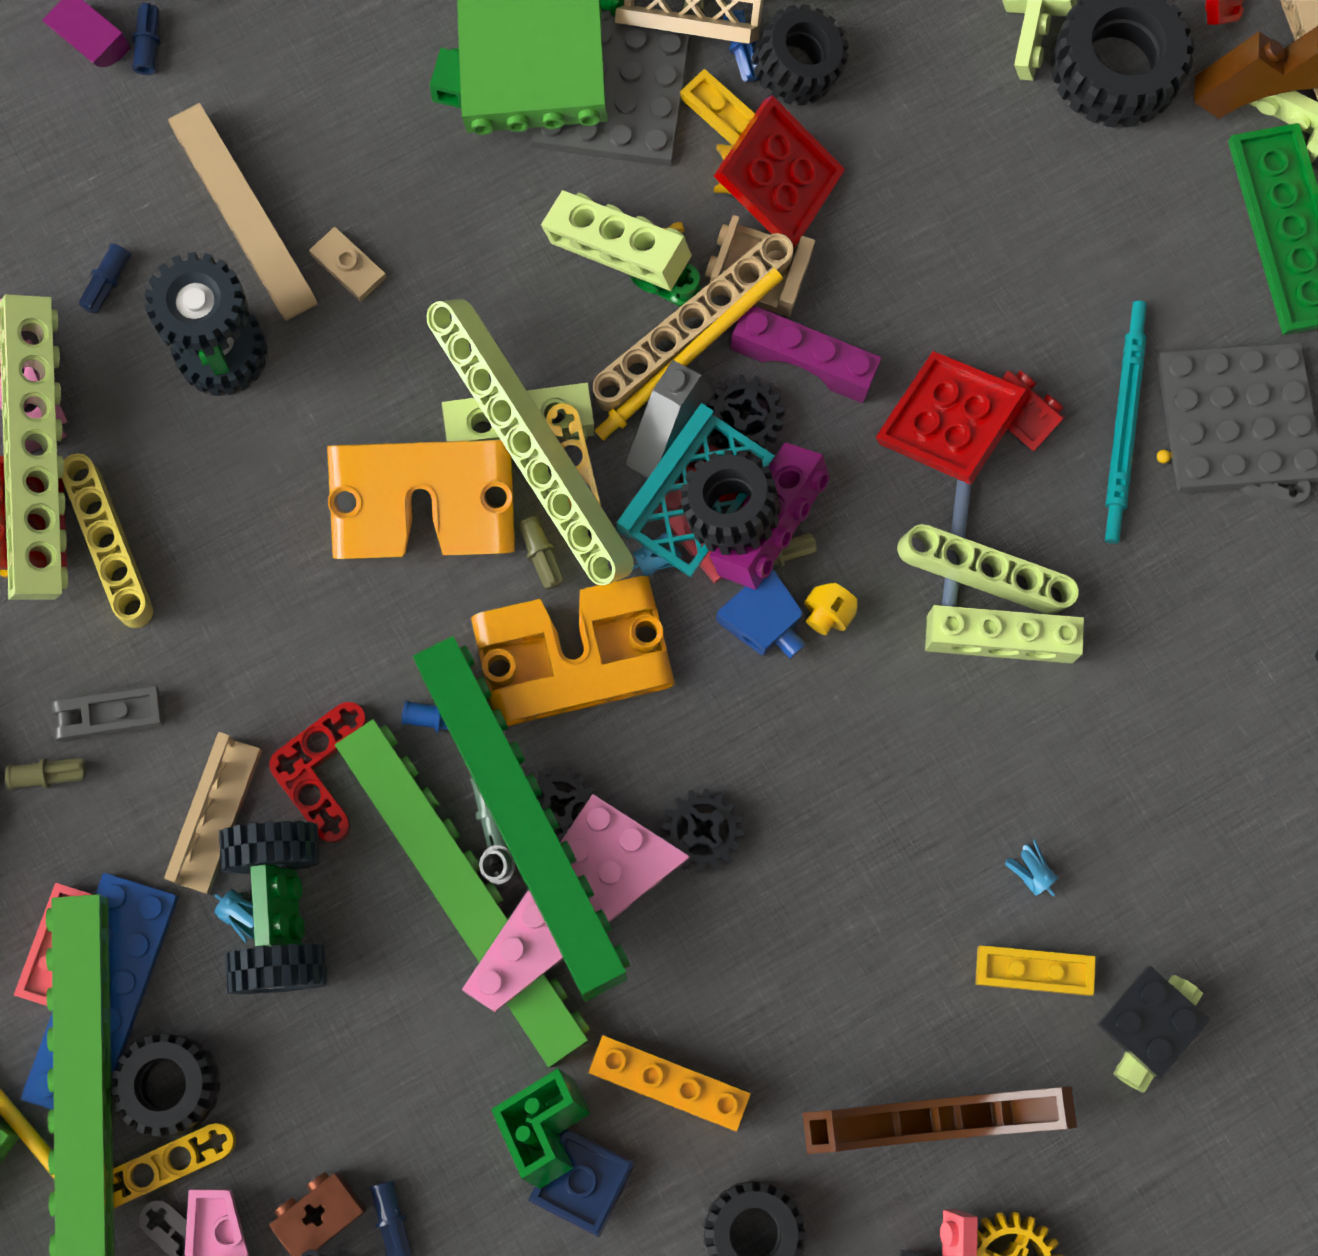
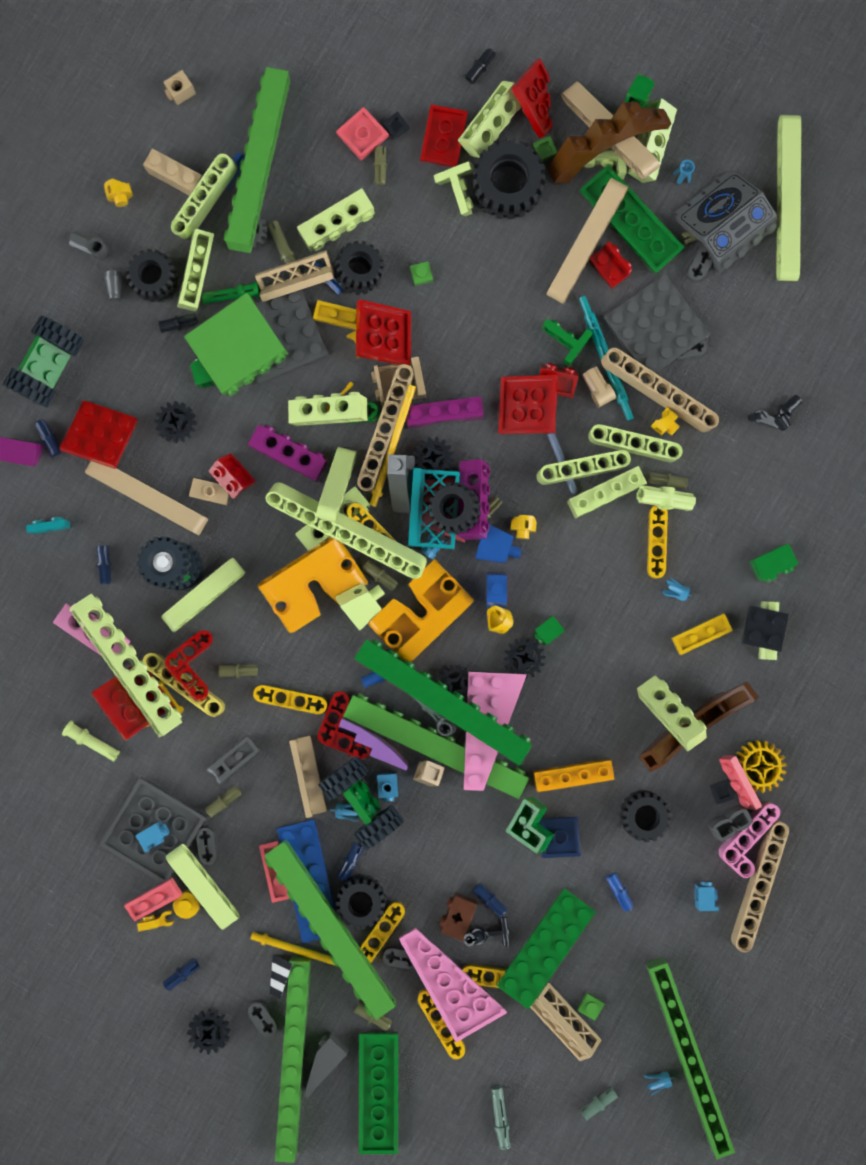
camera: 25 degrees left, 10 degrees up
(46, 165) = (55, 524): none -> teal plate
(74, 579) = (179, 708): none -> yellow hinge
(123, 508) = (183, 667): none -> red beam
(191, 1005) = (350, 861): none -> dark blue axle
(209, 571) = (238, 670): none -> olive axle
(228, 75) = (99, 434): none -> red plate
(231, 416) = (203, 595): none -> yellowish green beam
(266, 669) = (290, 701): none -> yellow beam
(351, 908) = (391, 779): none -> dark azure brick
(362, 830) = (380, 748): none -> medium lavender slope
(372, 136) = (168, 424): none -> black gear
(398, 255) = (231, 475): none -> red bracket
(420, 929) = (428, 773): none -> tan brick
(479, 576) = (360, 604): none -> yellowish green torso
(532, 322) = (259, 443): none -> magenta brick
(557, 358) = (336, 484): none -> yellowish green beam
(697, 741) = (499, 619): none -> yellow piece
(720, 688) = (496, 589): none -> blue torso
(770, 808) = (548, 631): none -> green brick
(896, 123) = (421, 273): none -> bright green plate
(911, 1125) = (687, 736): none -> yellowish green brick
(1042, 766) = (655, 541): none -> yellow beam
(1077, 354) = (567, 339): none -> green bracket
(1086, 467) = (601, 391): none -> tan piece
(1101, 699) = (666, 498): none -> yellowish green piece
(1116, 585) = (644, 442): none -> yellowish green beam
(1120, 676) = (668, 480): none -> olive axle
(1169, 579) = (666, 423): none -> yellow piece
(1198, 217) = (587, 240): none -> tan beam
(1205, 527) = (669, 390): none -> tan beam
(1209, 44) = (545, 148): none -> bright green plate
(1217, 280) = (611, 265): none -> red bracket
(1231, 920) = (774, 562): none -> green brick

